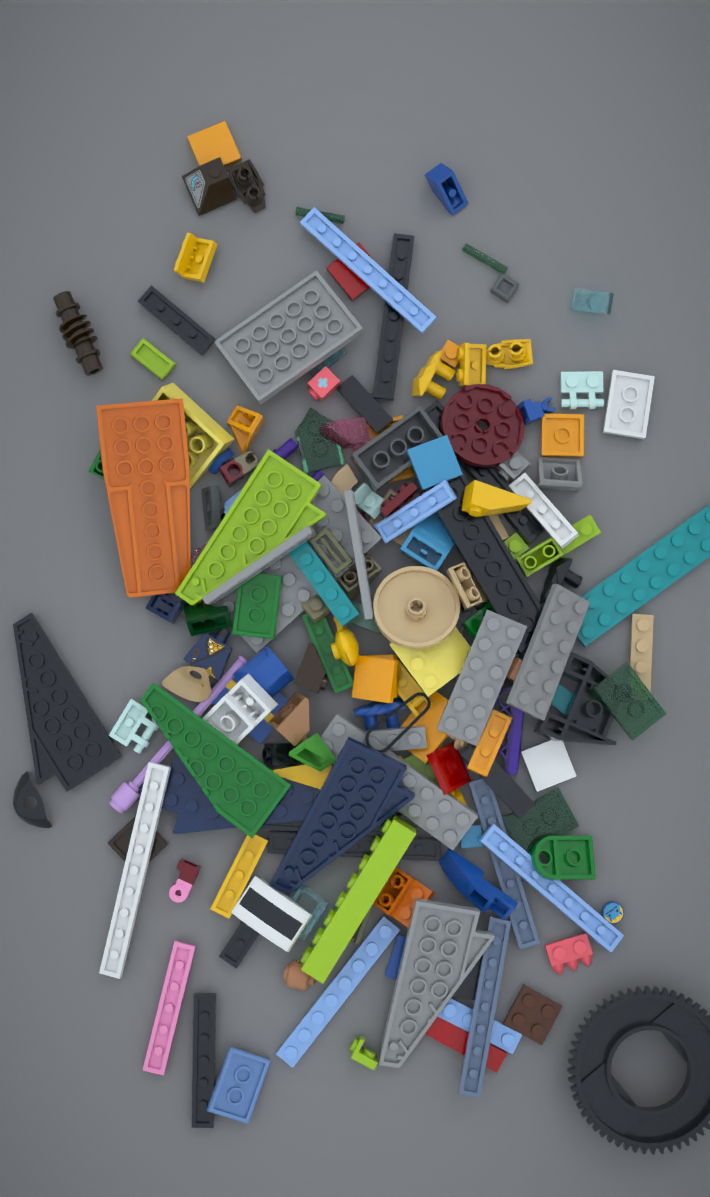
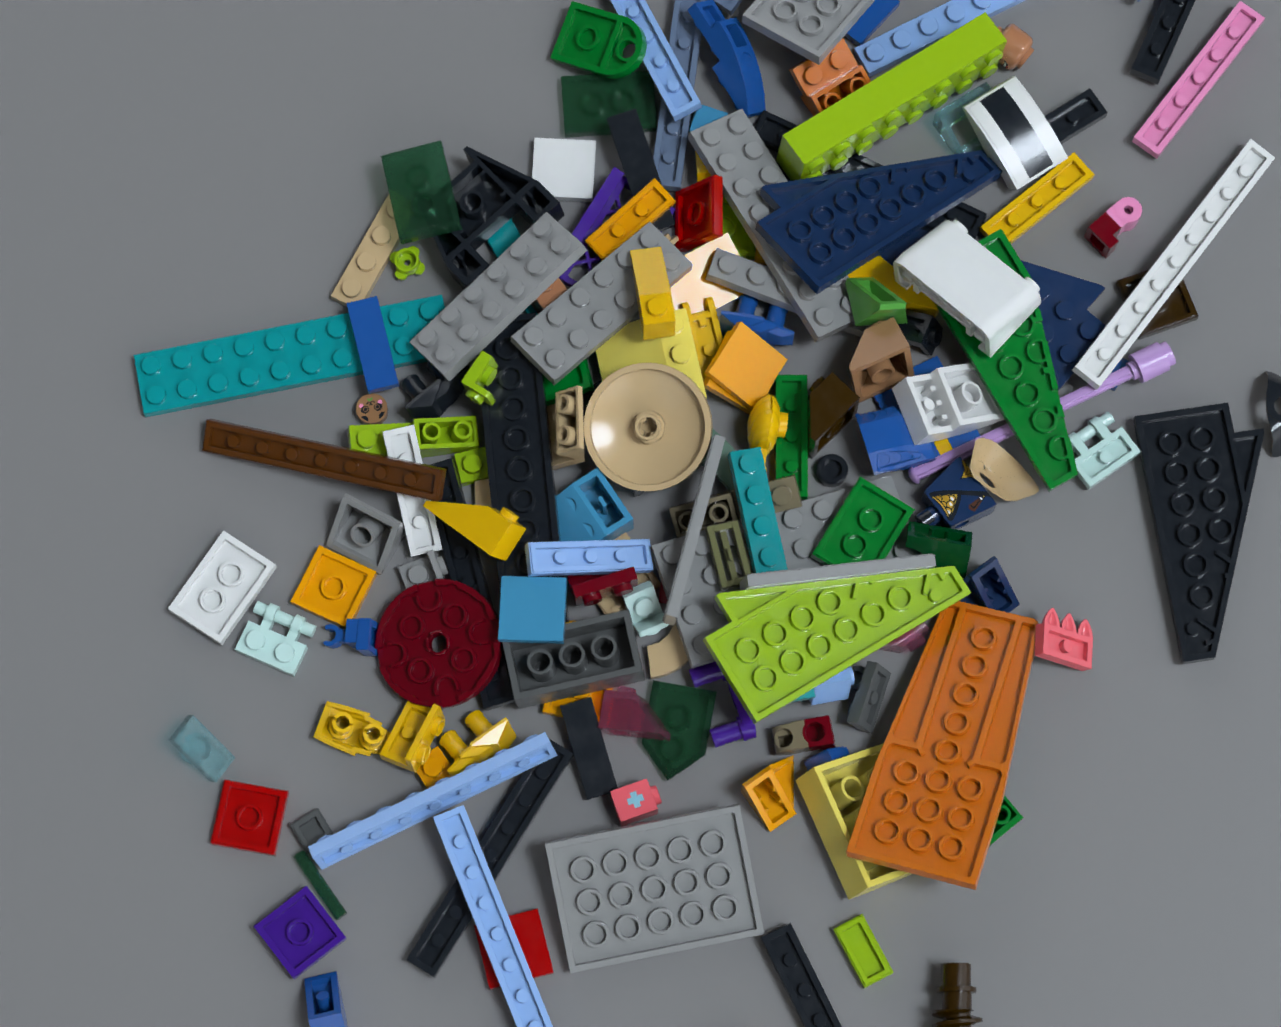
camera: 155 degrees left, 10 degrees down
(107, 592) = (1064, 642): none -> coral plate
(257, 789) = (968, 284): none -> white windscreen
(294, 641) = (832, 470): none -> black tile
(407, 728) = (748, 307): black piece -> none
(436, 338) = (425, 804): none -> light blue plate
(453, 694) = (653, 293): none -> yellow slope
(483, 225) = (300, 932): none -> dark purple plate
(535, 594) = (480, 374): none -> lime bracket
(544, 279) = (249, 818): none -> red tile
(593, 554) = (372, 409): none -> medium nougat tile
(605, 504) = (324, 459): none -> reddish brown tile
(611, 657) = (407, 254): none -> lime plate
(612, 592) = (372, 345): none -> blue tile

